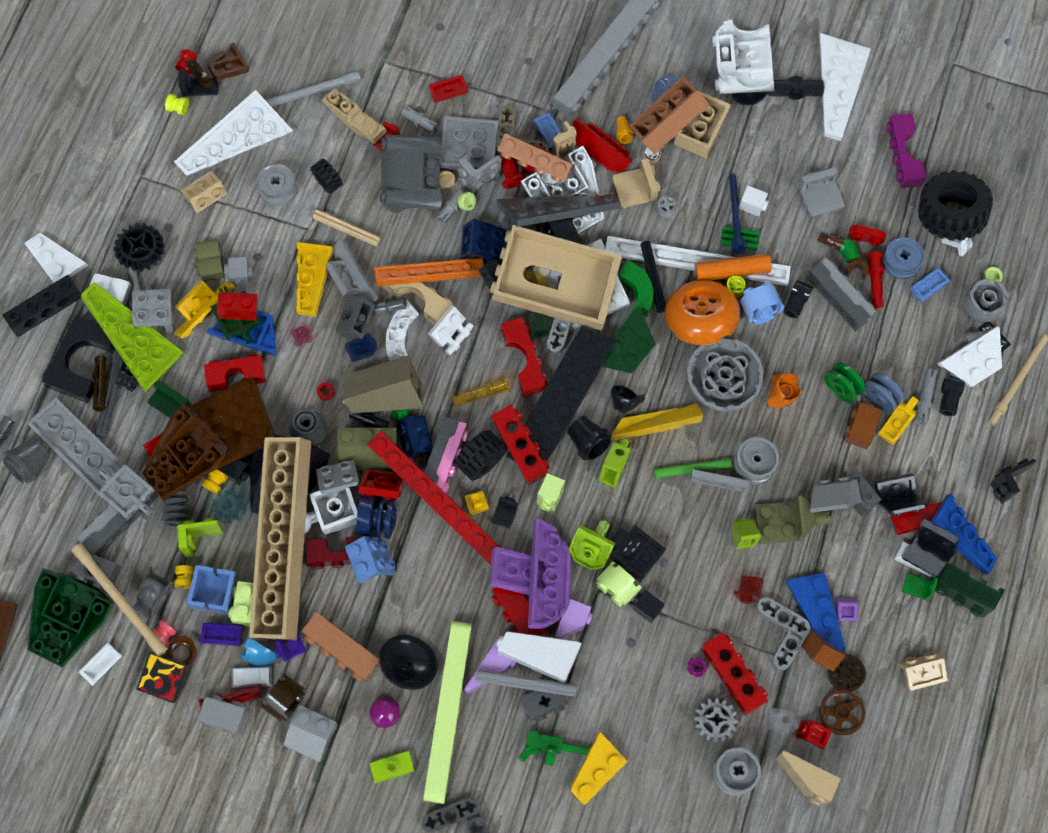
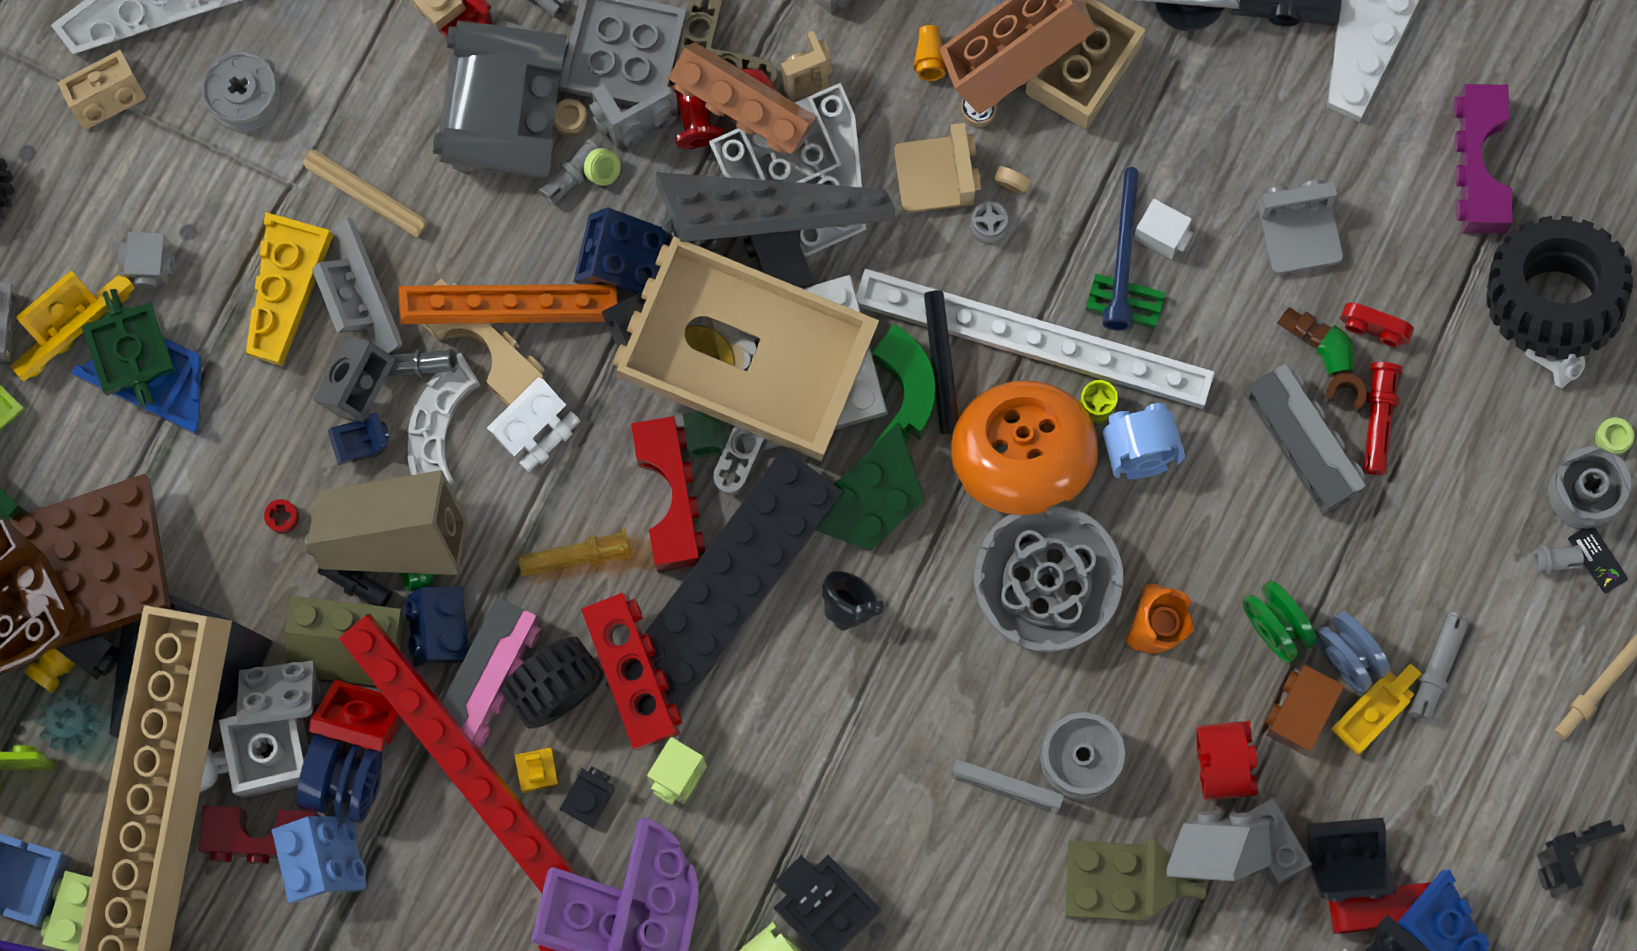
camera: 15 degrees right, 5 degrees up
(209, 259) = (94, 230): olive brick -> none
(218, 372) = (82, 457): red arch -> none
(237, 306) = (129, 335): red brick -> none
(304, 330) = (243, 393): clear pink plate -> none
(315, 432) = (249, 597): dark grey piece -> none
(326, 175) = (337, 86): black tyre -> none
(547, 128) = (781, 34): medium blue plate -> none
(589, 438) = (766, 672): black piece -> none
(591, 547) = (739, 887): lime piece -> none
(601, 146) = (880, 82): red brick -> none
(615, 463) = (811, 726): lime torso -> none
(657, 422) = (904, 653): yellow wedge -> none
(674, 185) = (1012, 180): none -> tan tile
(687, 469) = (966, 752): bright green piece -> none
(733, 267) = (1099, 362): orange brick -> none
(745, 533) = (1038, 895): lime slope -> none
(799, 295) = (1222, 432): black piece -> none
(829, 453) = (1226, 760): none -> red brick
(907, 249) = (1456, 365): sand blue wheel -> none
(929, 285) = (1485, 440): medium blue plate -> none
(952, 391) = (1491, 661): black piece -> none
(976, 359) = (1549, 603): white wing -> none

